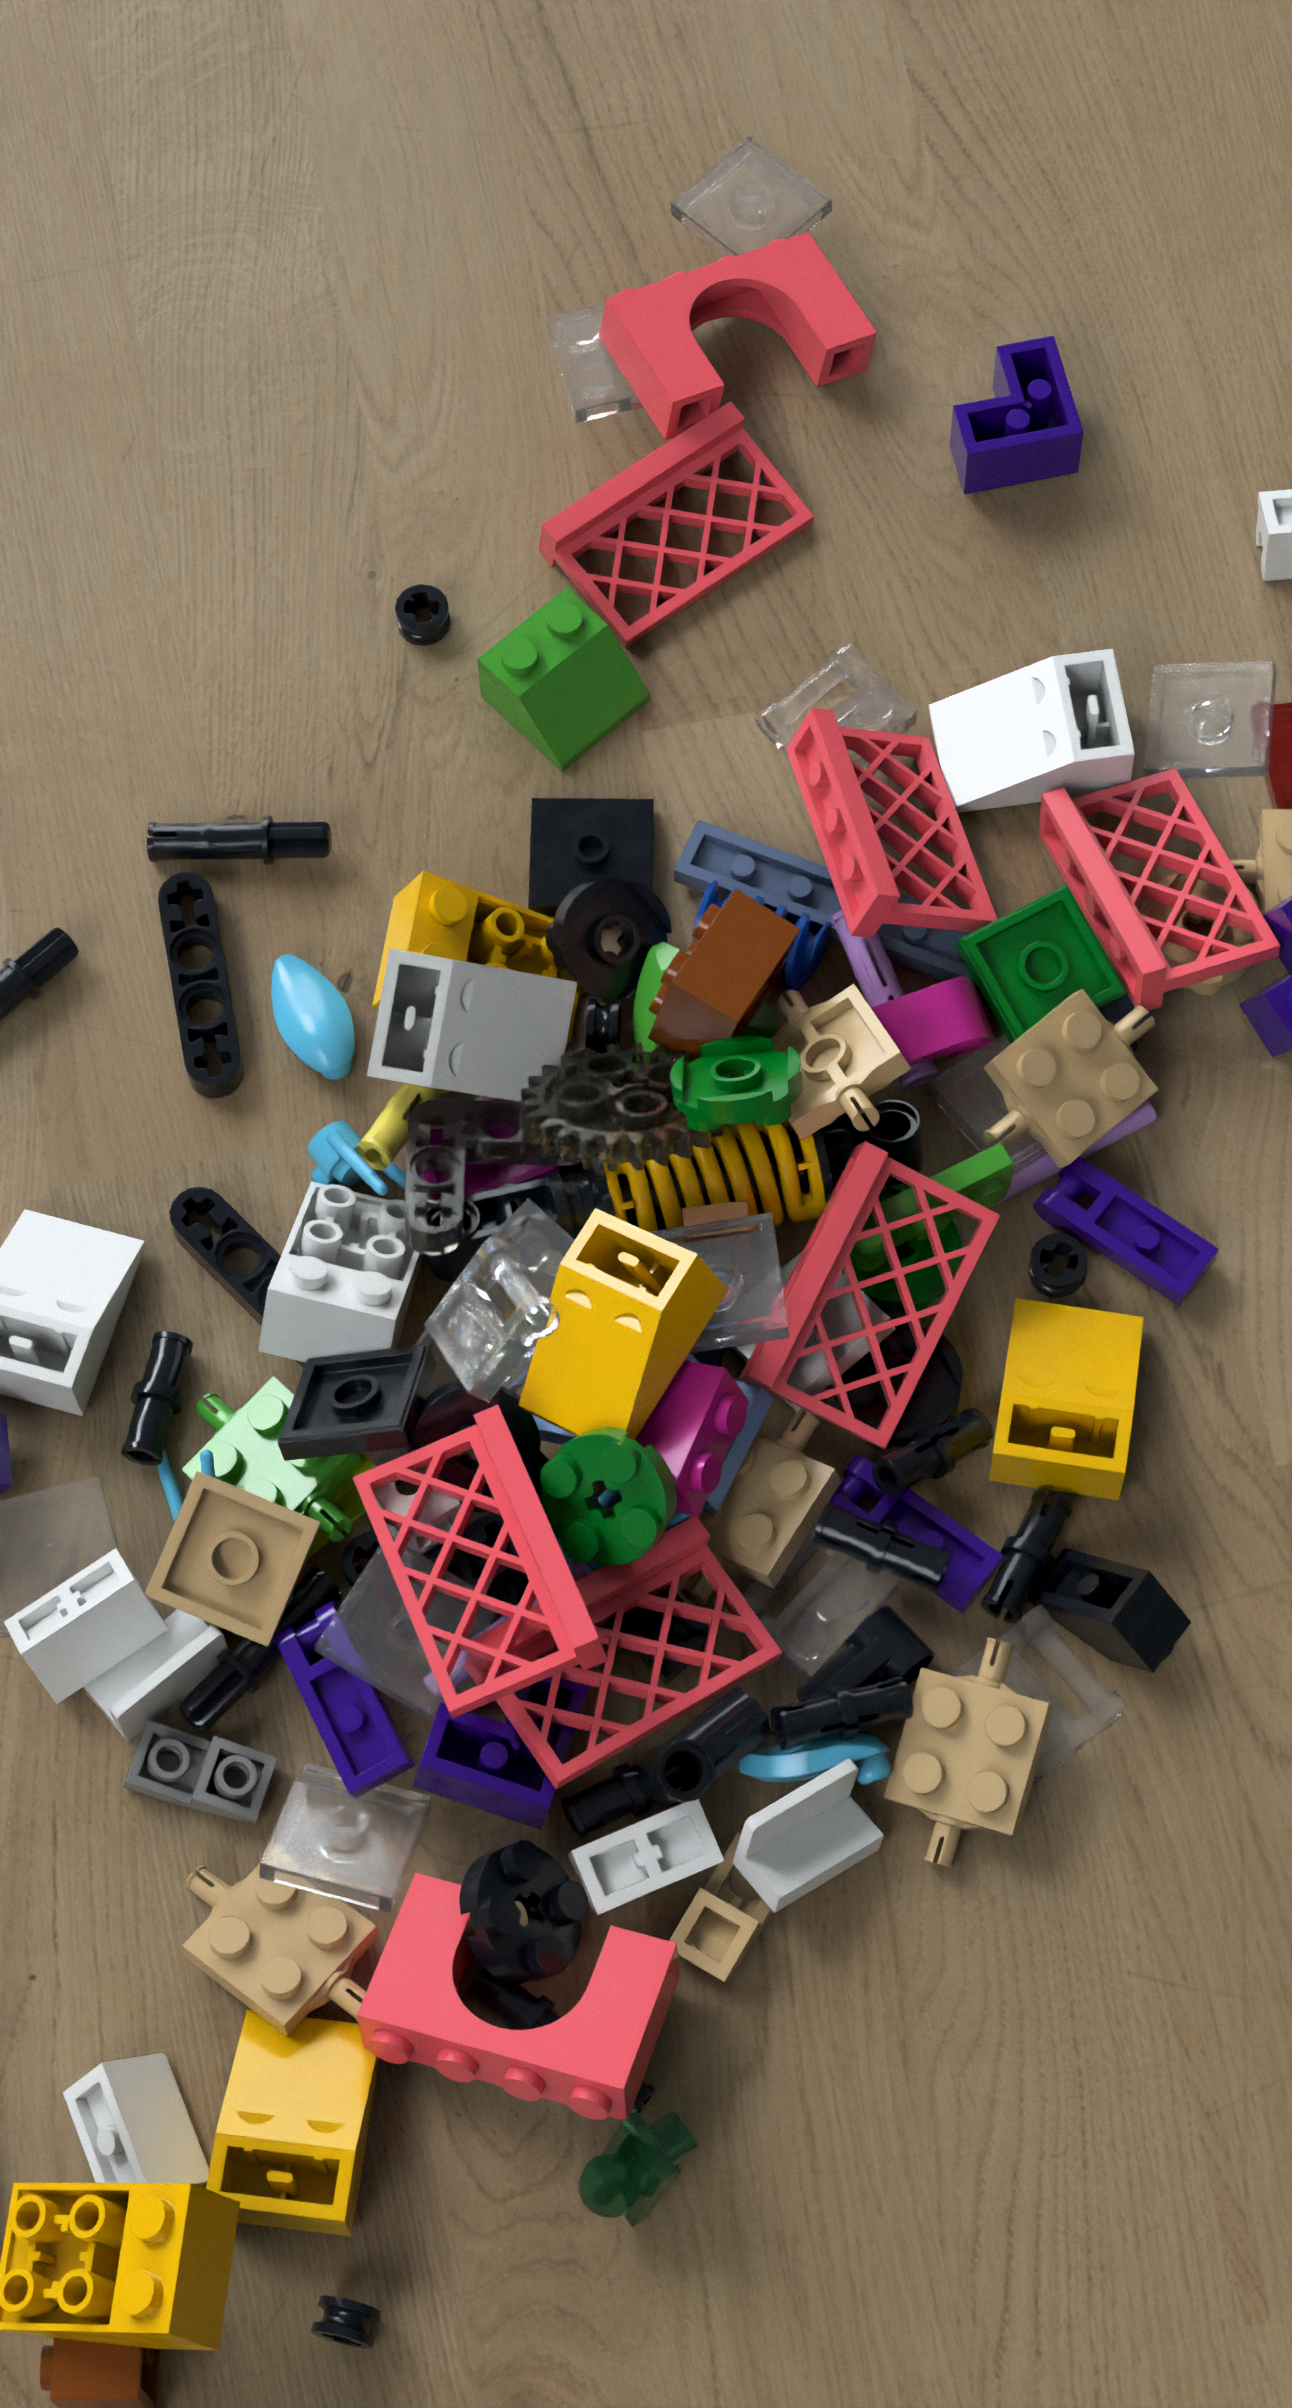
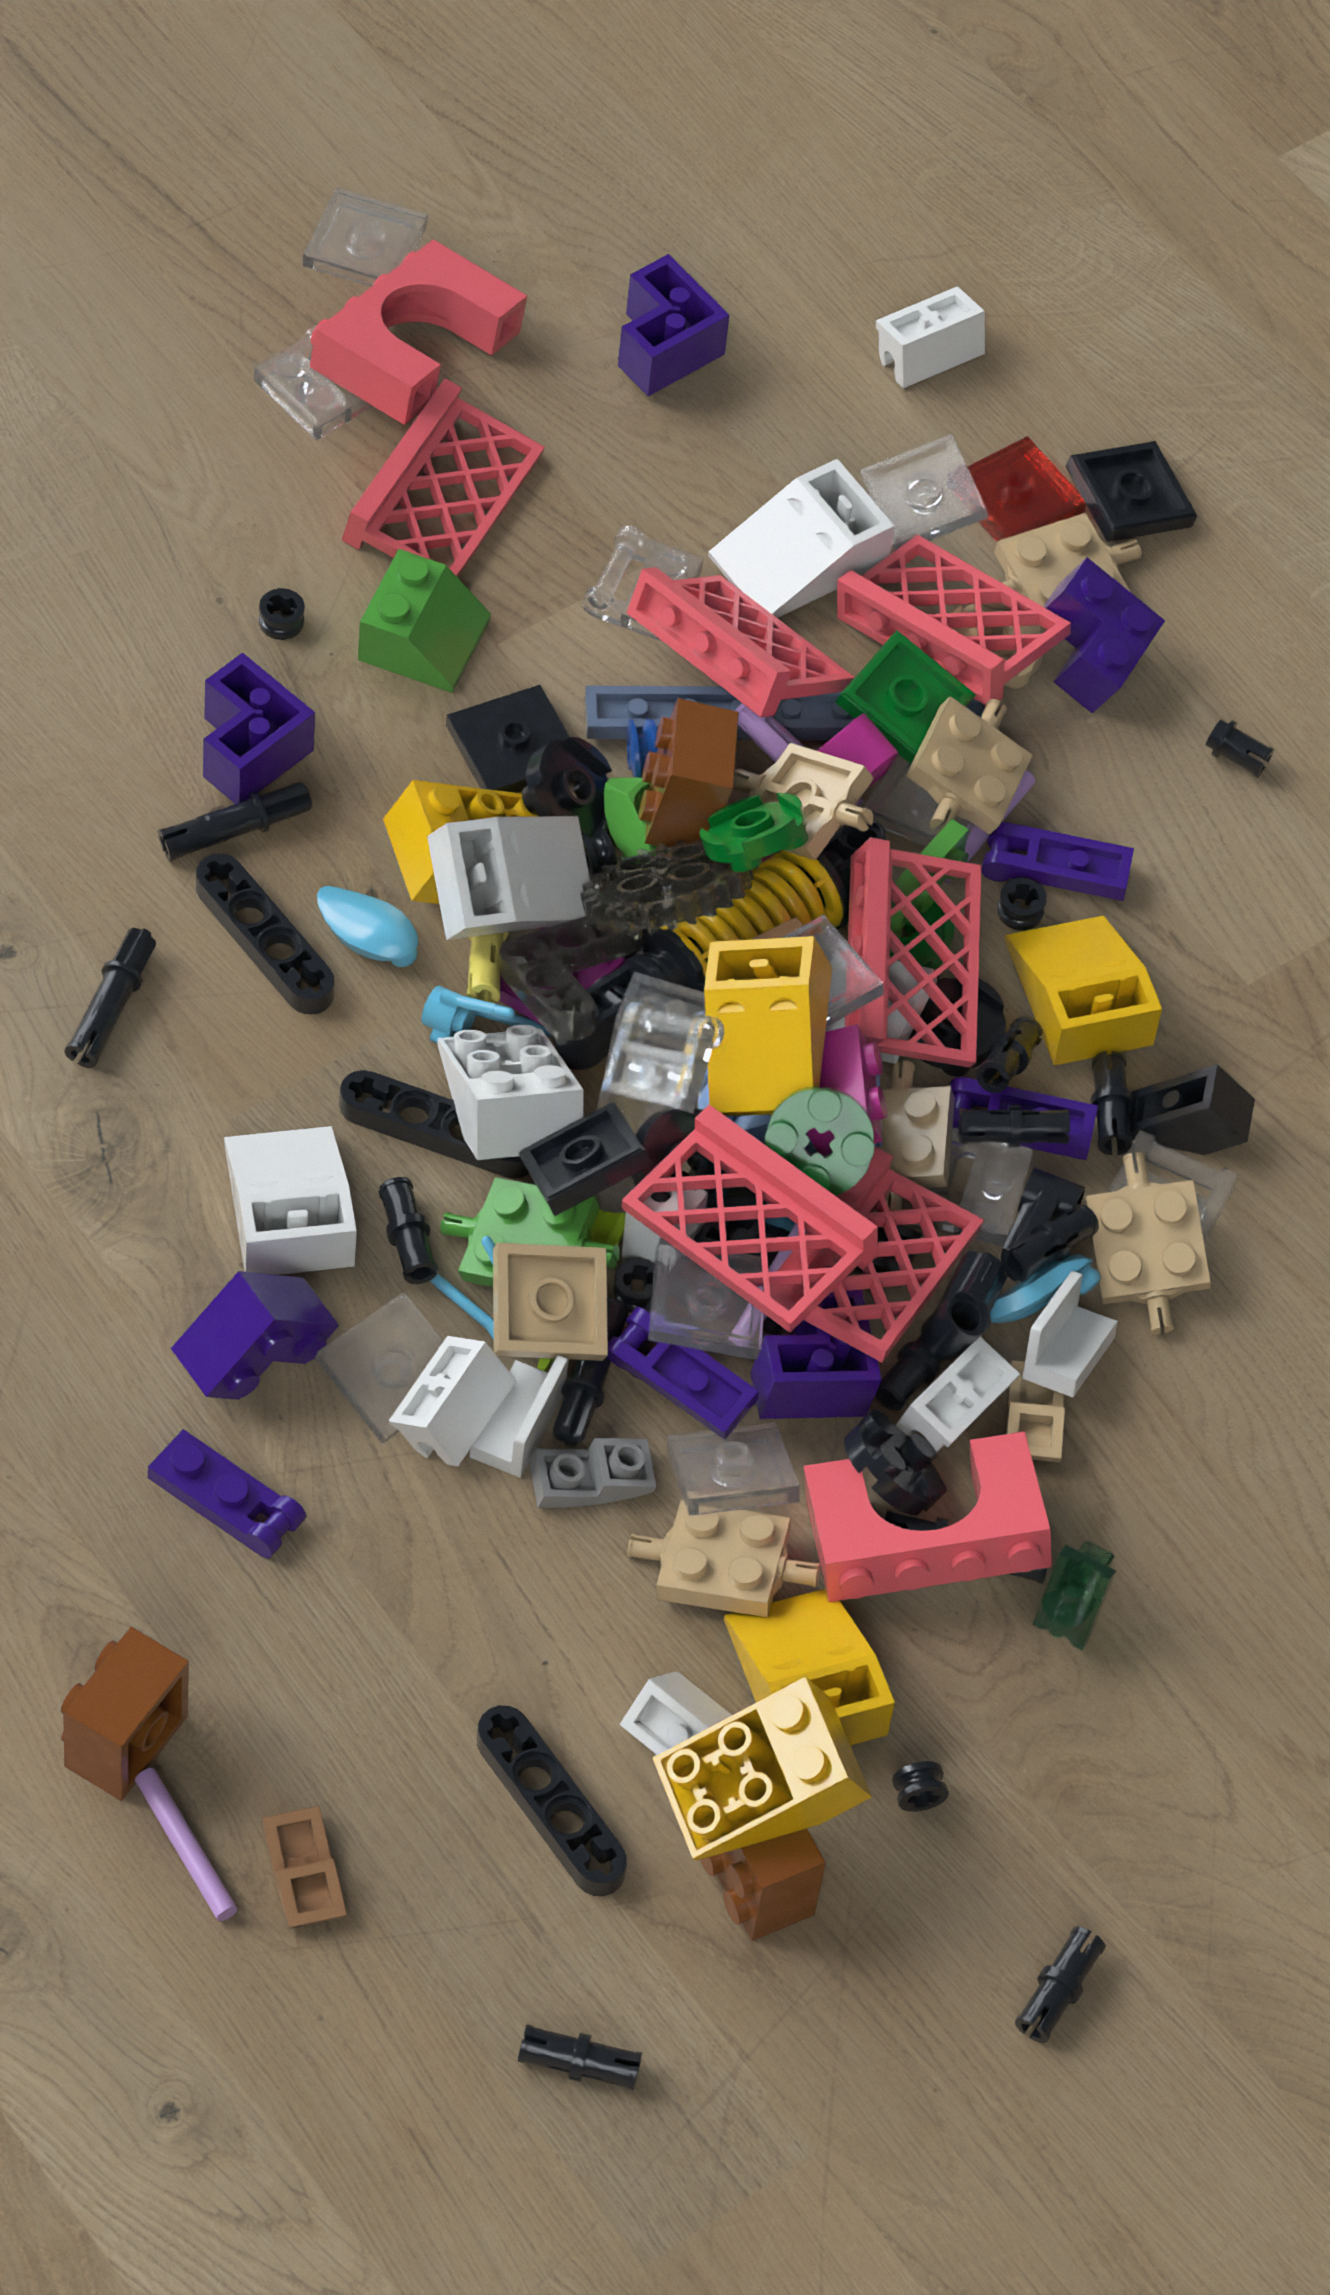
camera: 35 degrees left, 10 degrees down
(308, 754) = (257, 731): none -> dark purple brick

